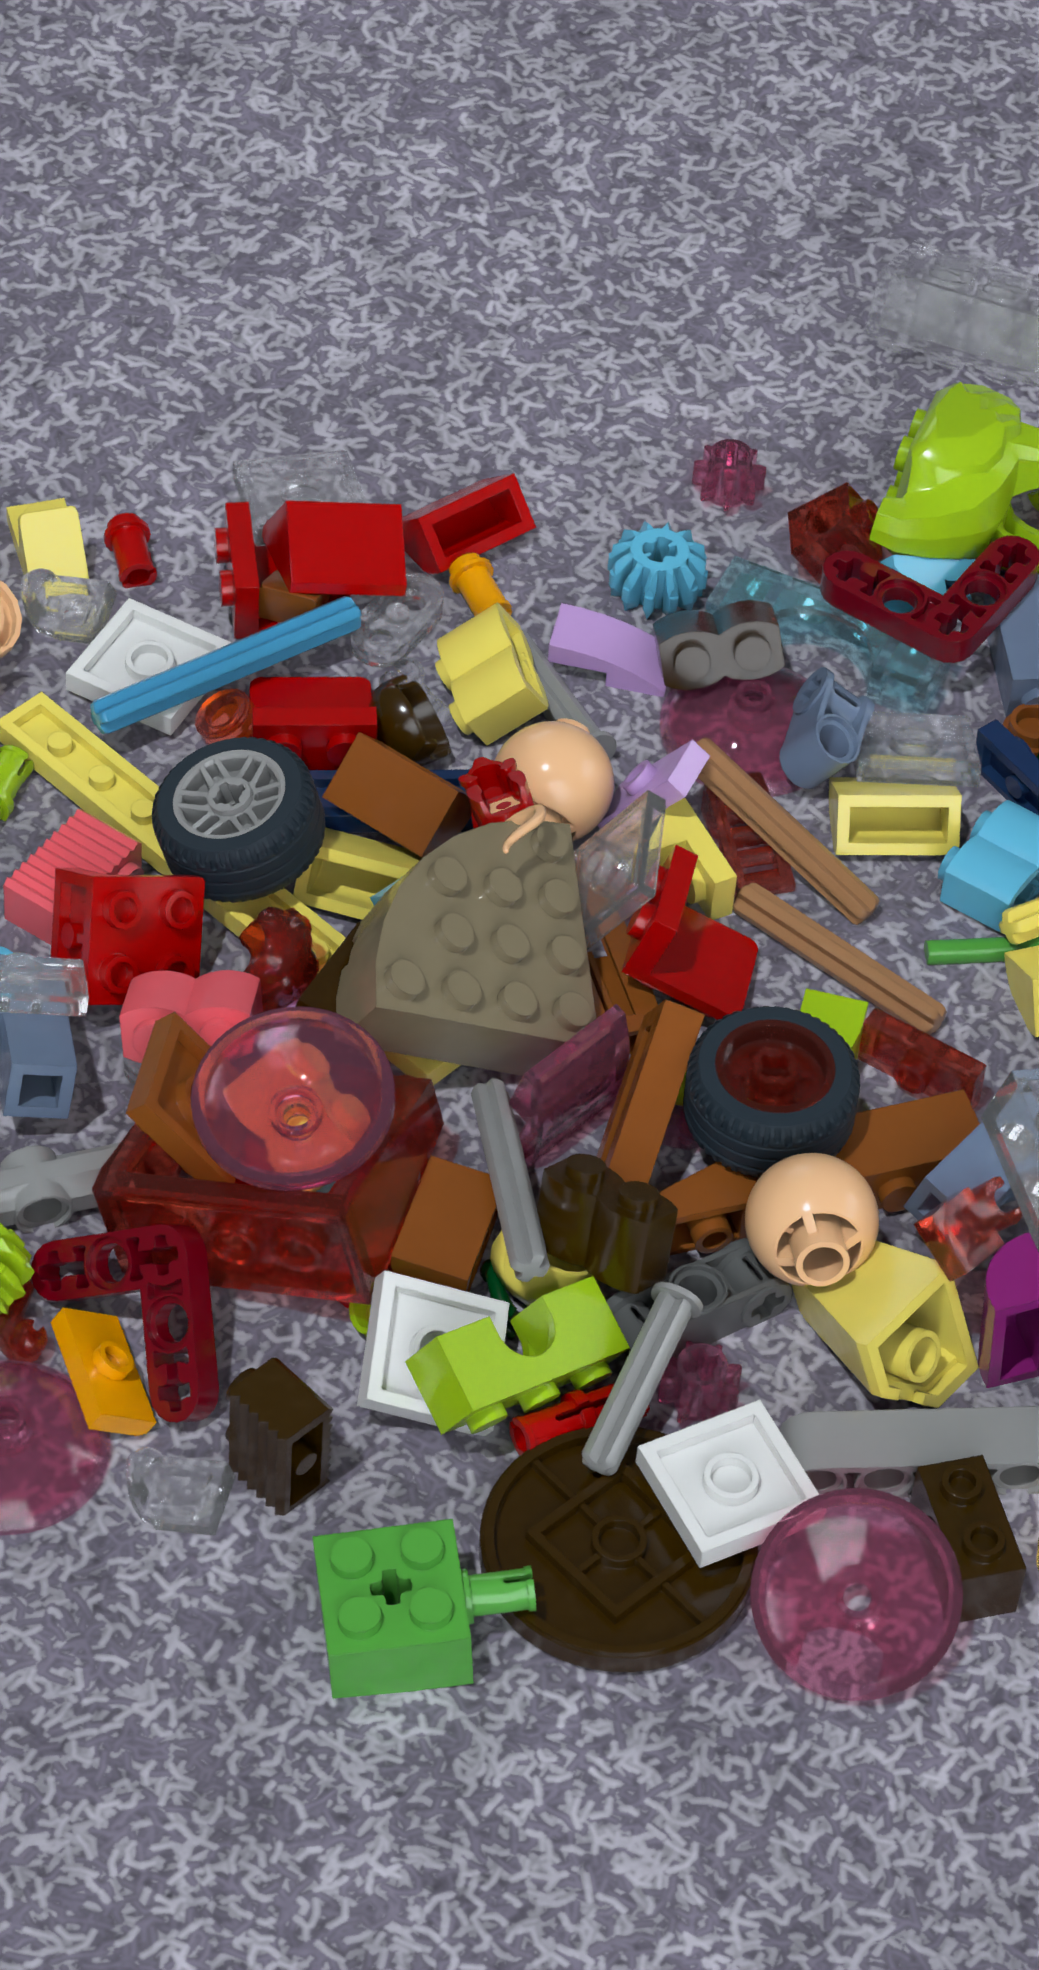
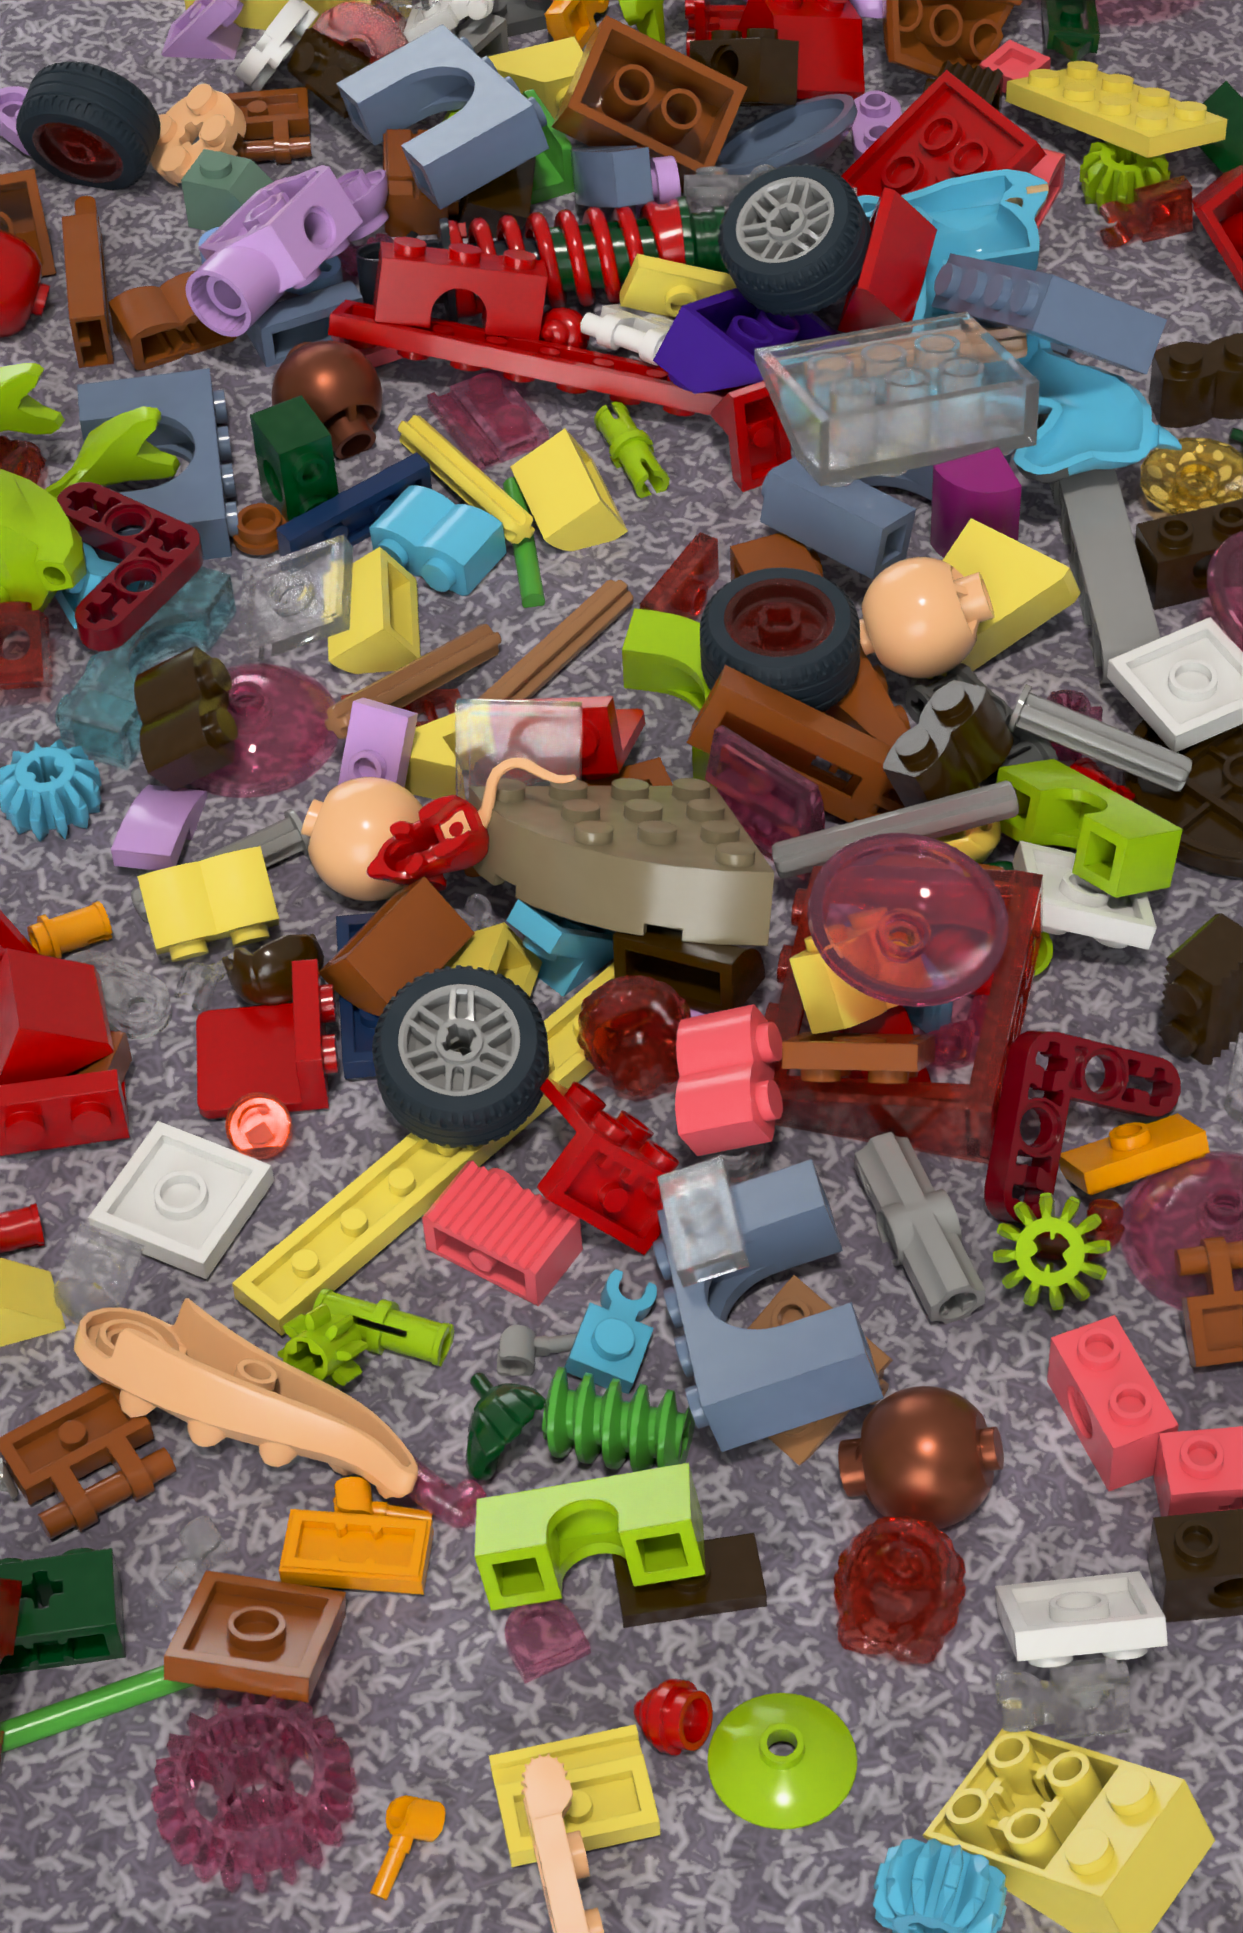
camera: 85 degrees left, 0 degrees up
(225, 665) = (207, 1114): dark azure axle -> none
(823, 730) = (301, 646): sand blue piece -> none
(966, 1228) = (946, 500): clear red plate -> none

